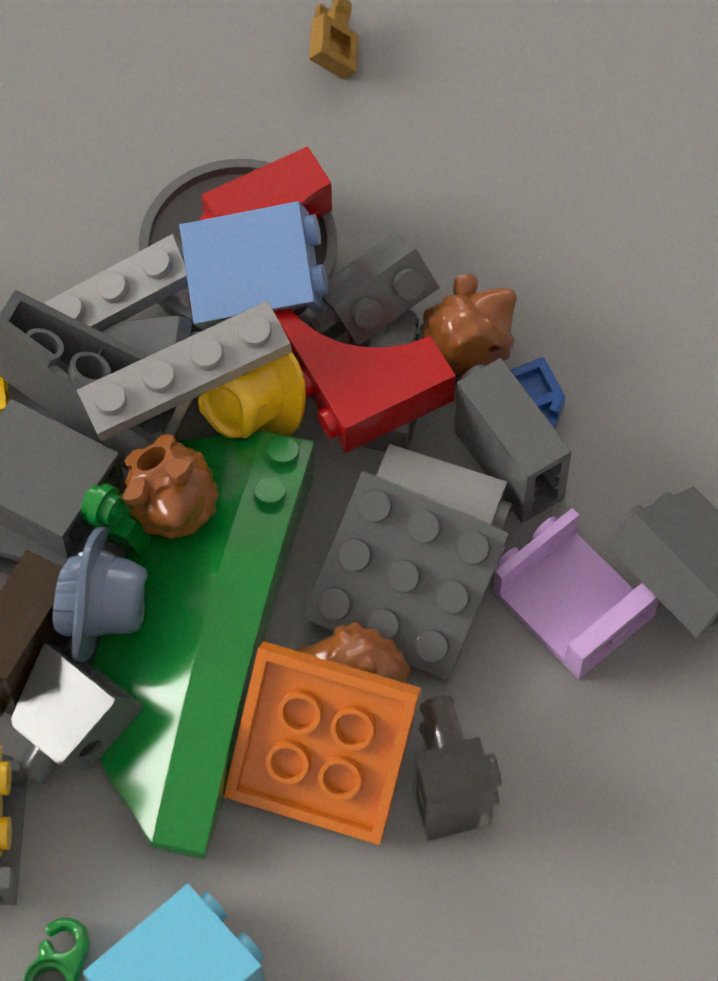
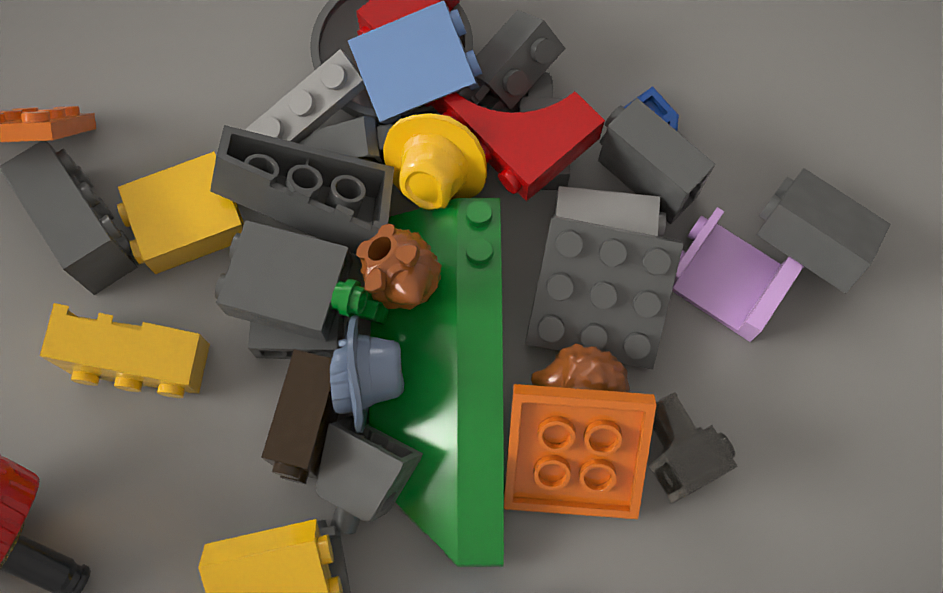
camera: 15 degrees left, 10 degrees up
(184, 370) = (386, 165): light grey plate -> none
(471, 326) = (596, 73): dark orange animal -> none

